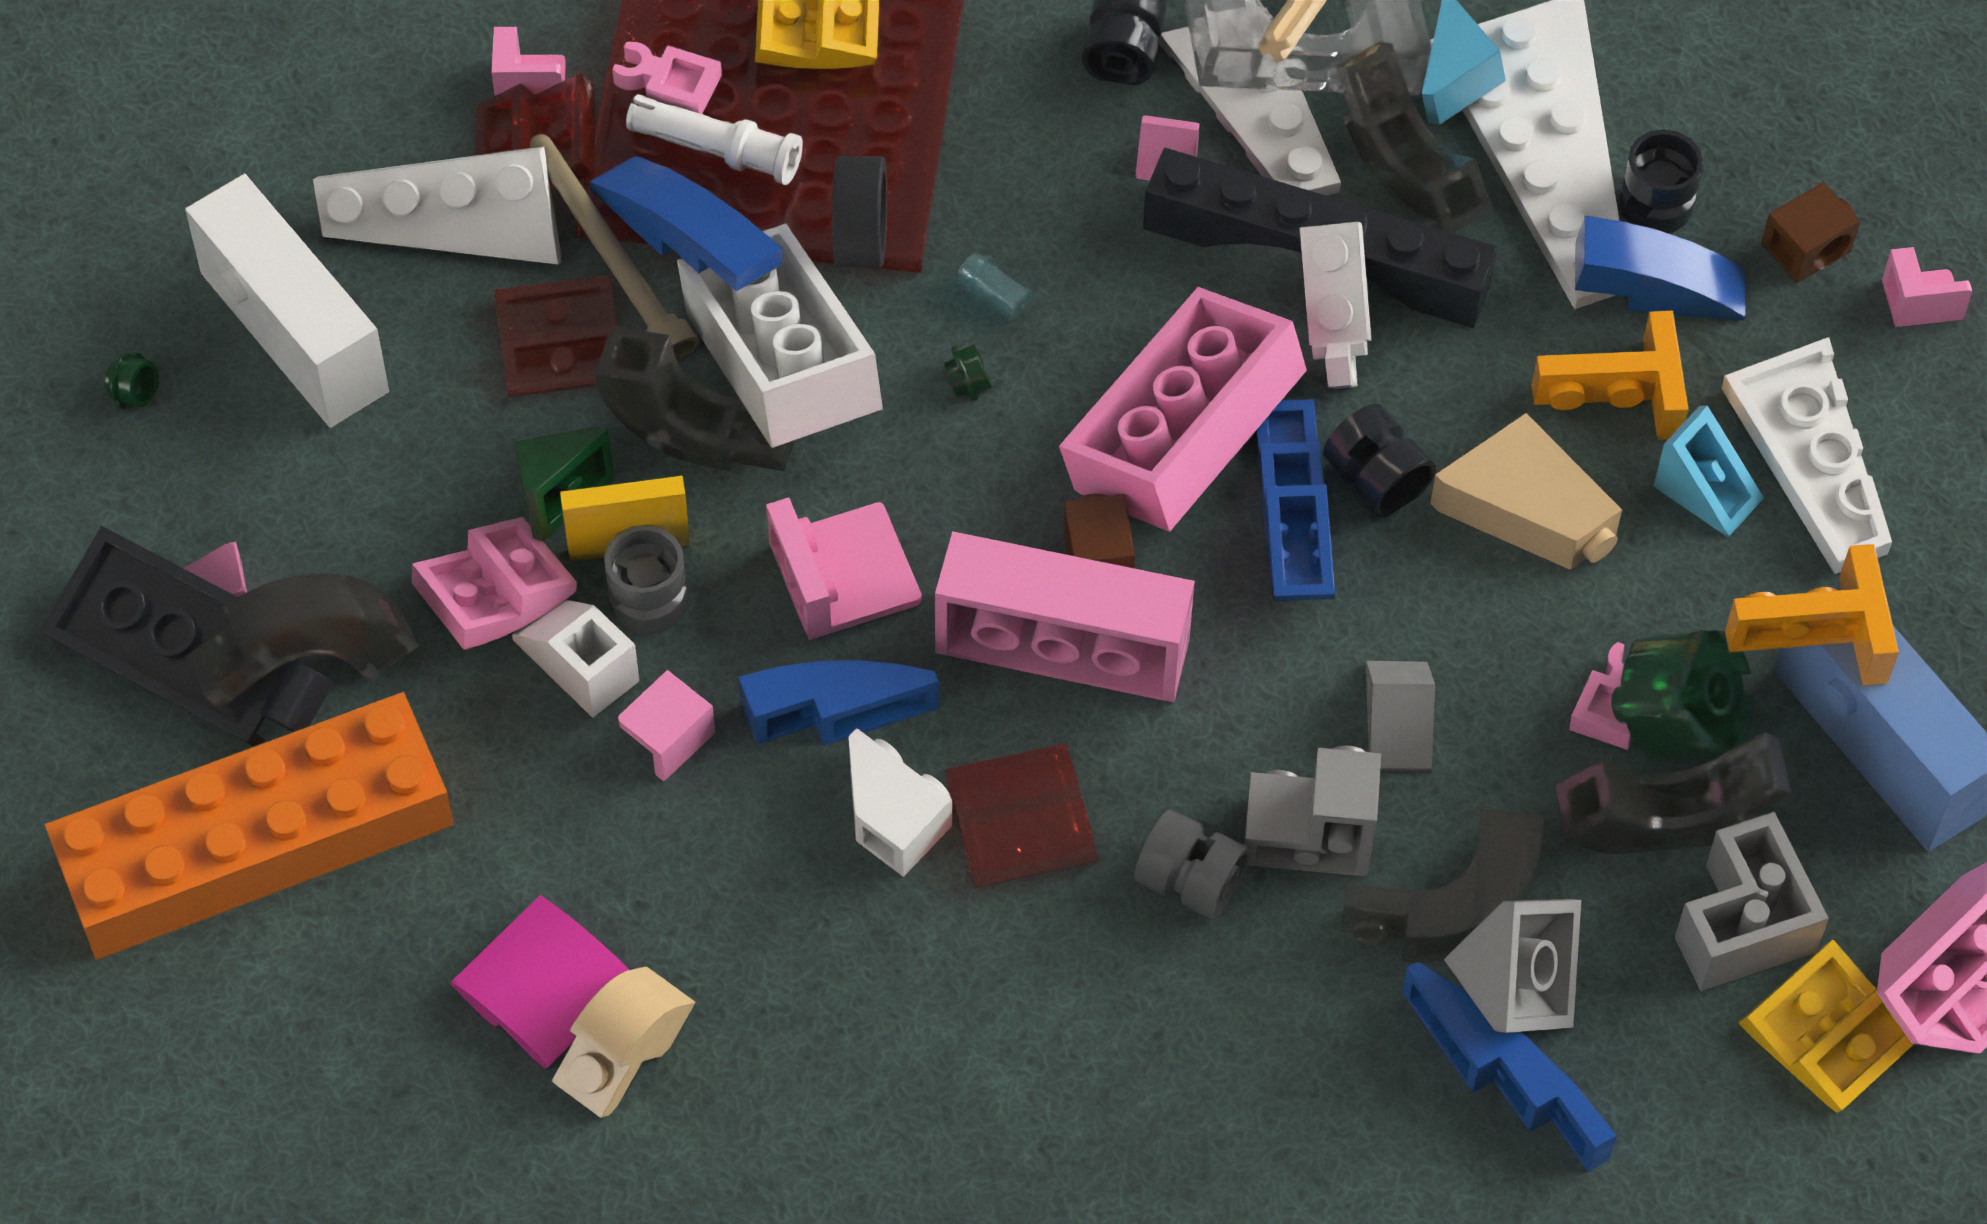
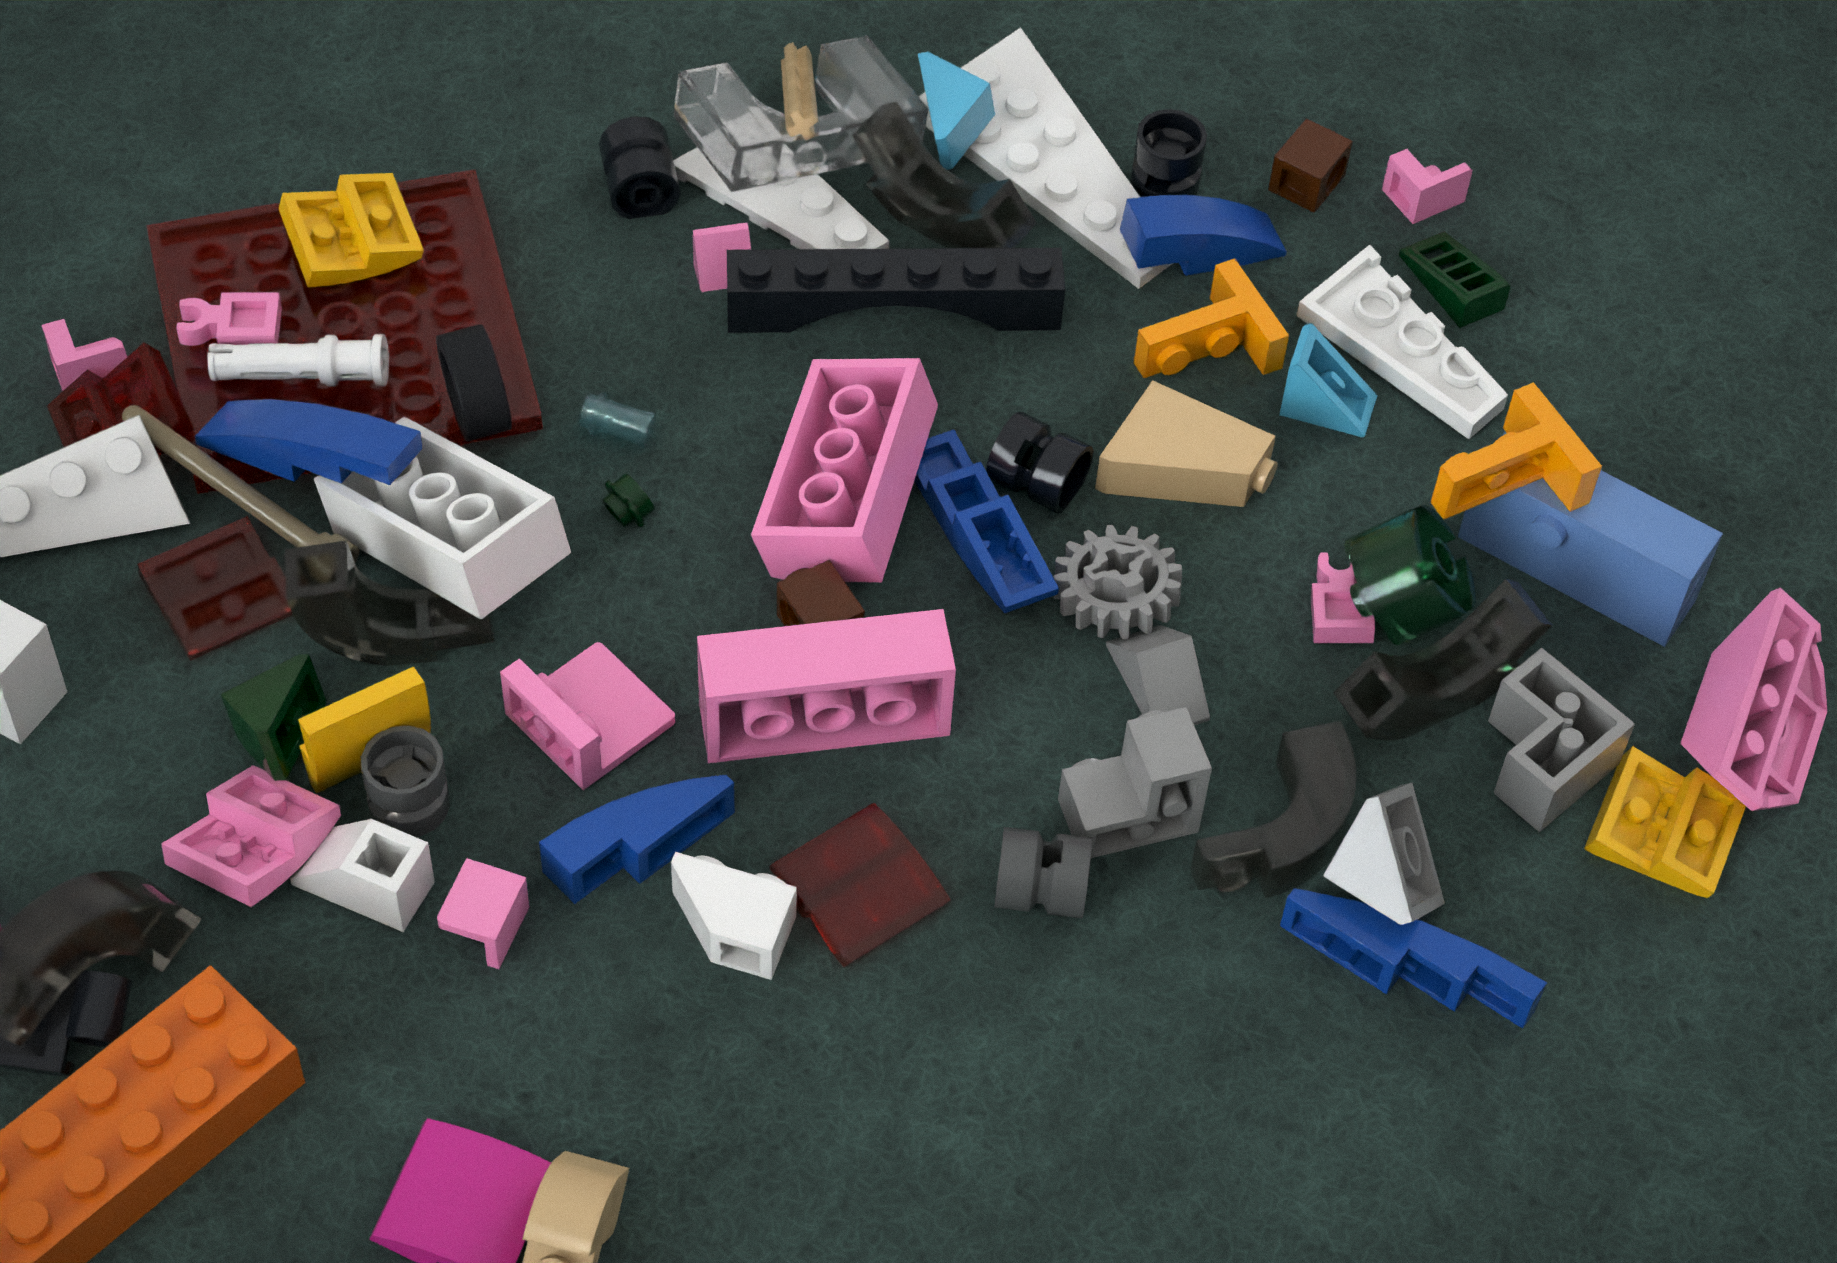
camera: 25 degrees left, 5 degrees down
(1336, 298) = (939, 332): white hinge -> none
(1400, 605) = (1118, 582): none -> light grey gear
(1908, 434) = (1460, 304): none -> dark green slope

